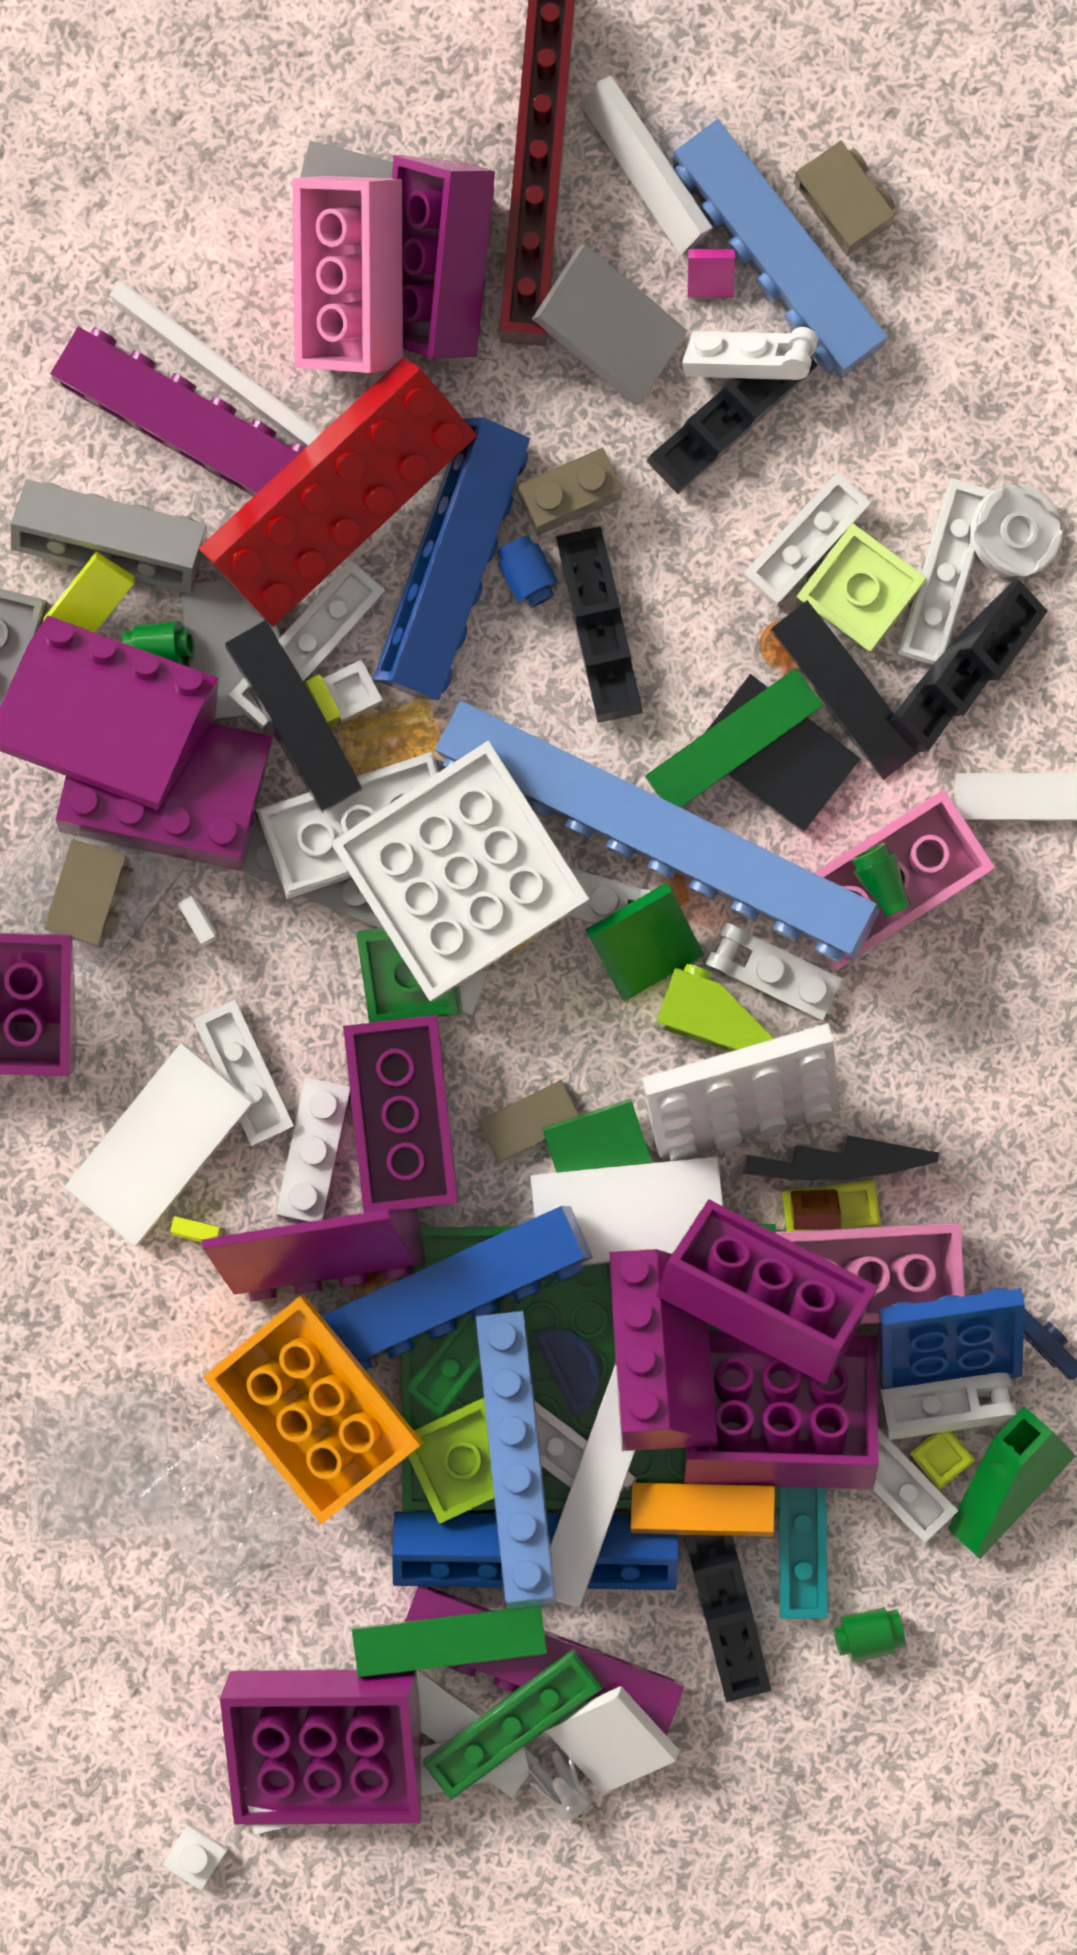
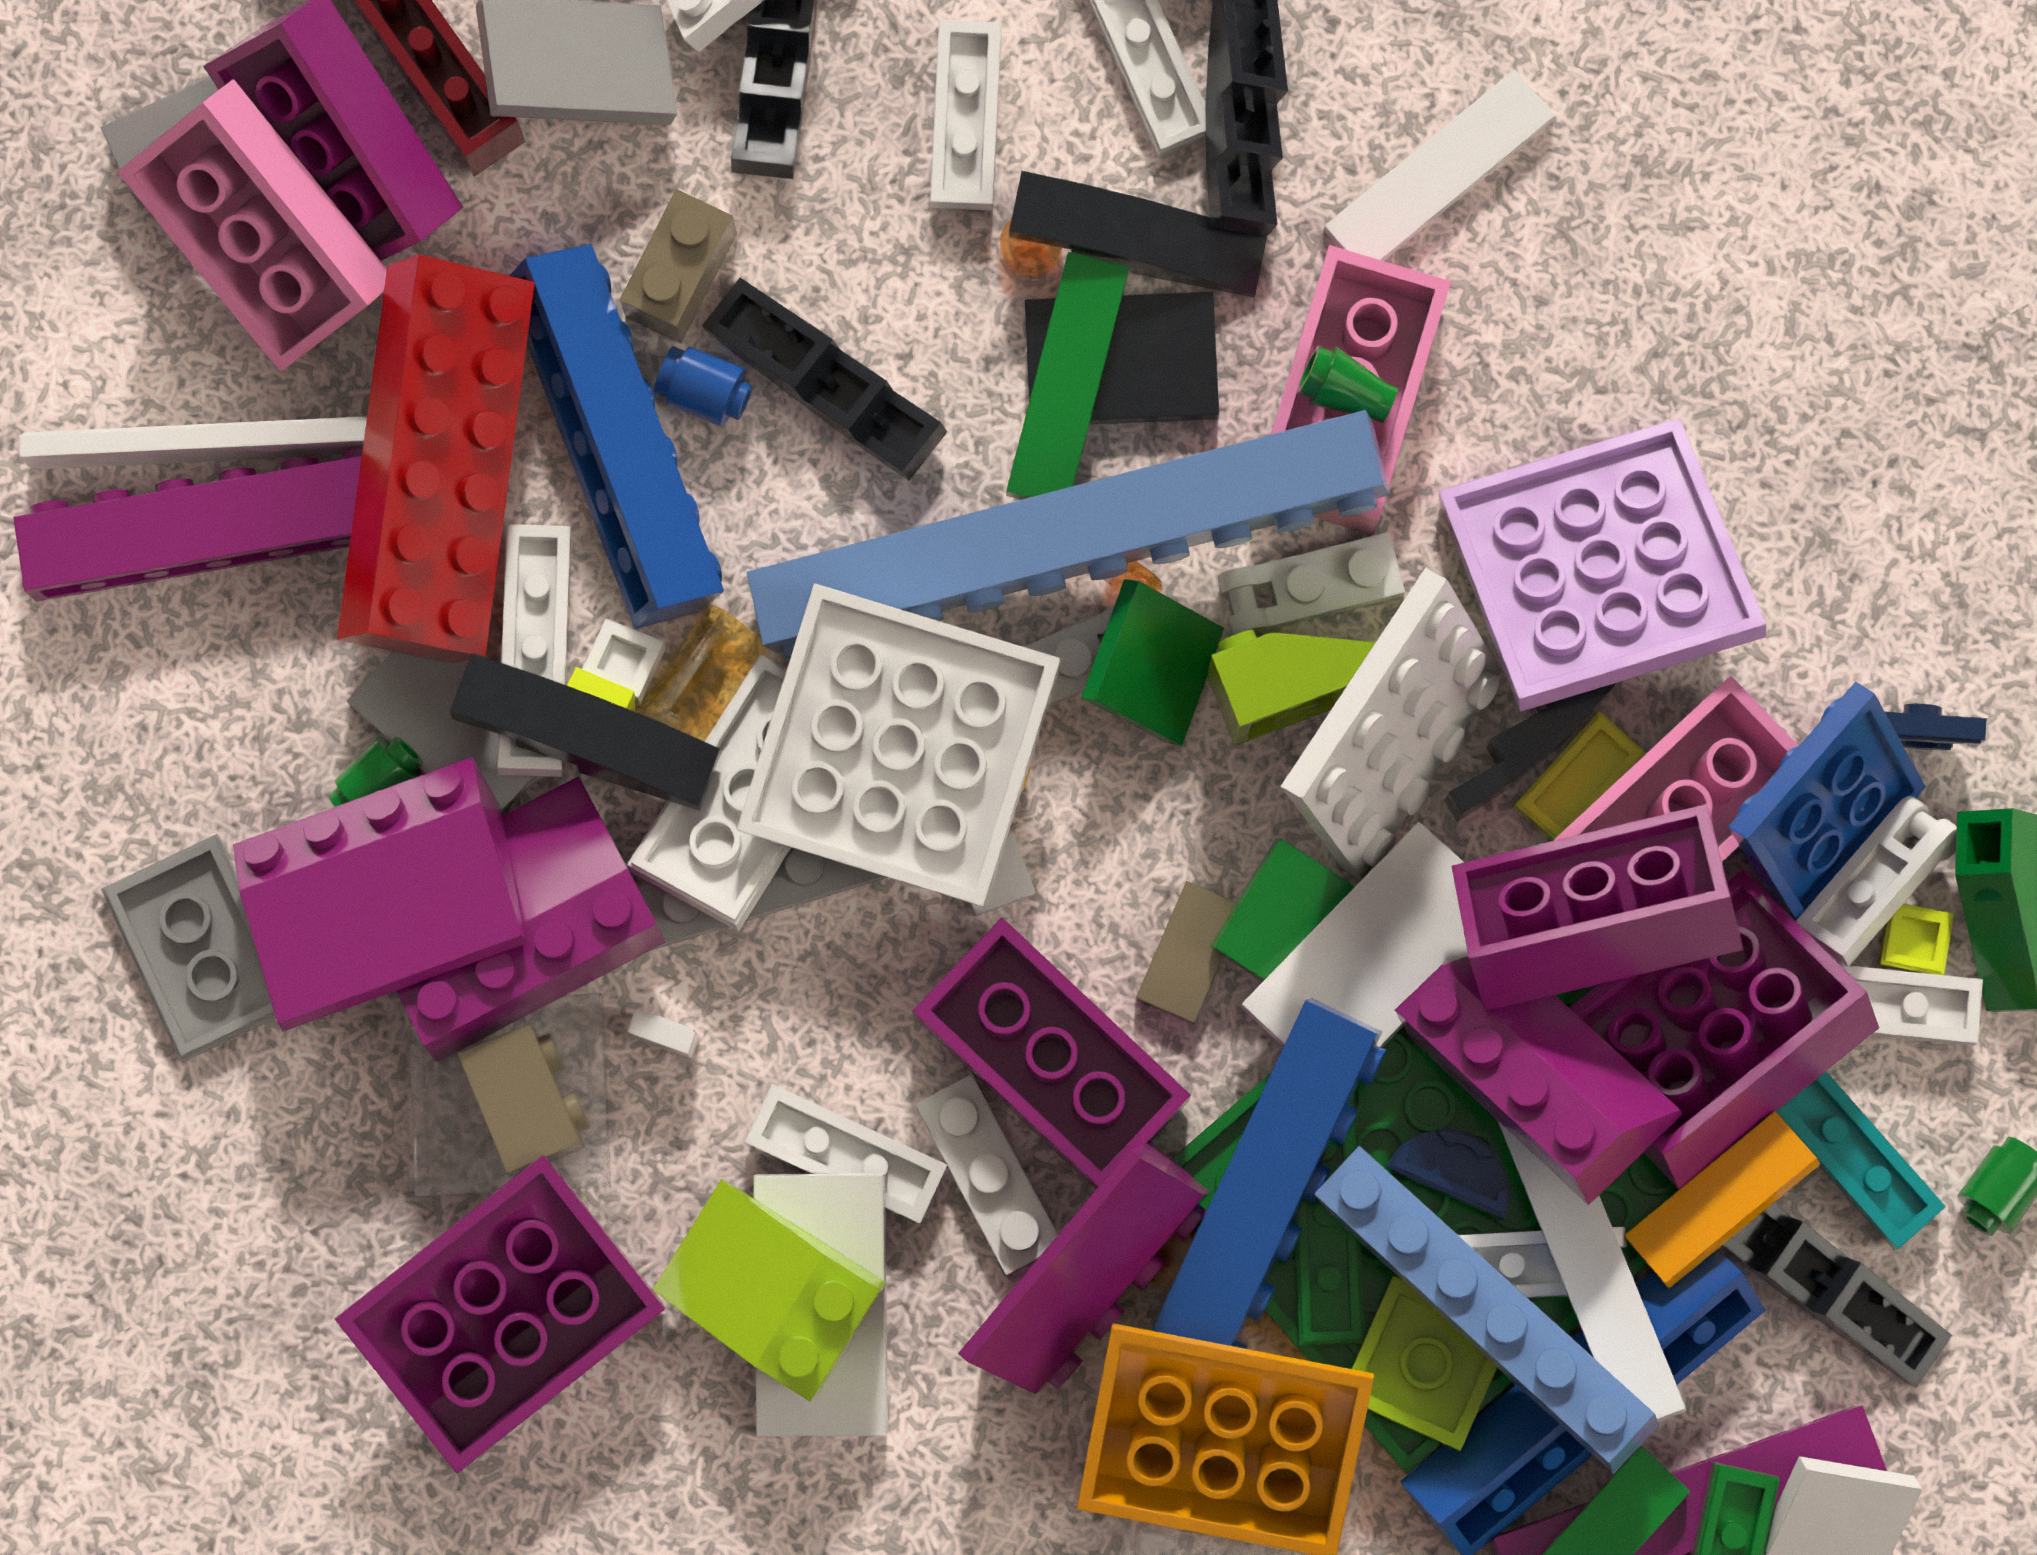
camera: 40 degrees left, 5 degrees down
(75, 525) = (228, 710): light grey brick -> none
(93, 594) = (263, 782): neon yellow tile -> none
(135, 1113) = (769, 1290): none -> lime slope
(194, 1229) = (935, 1363): neon yellow tile -> none
(391, 986) = (926, 927): green tile -> none
(815, 1209) = (1567, 789): reddish brown tile -> none
(861, 588) = (1066, 116): yellowish green plate -> none
(943, 1099) = (1601, 564): none -> lavender plate

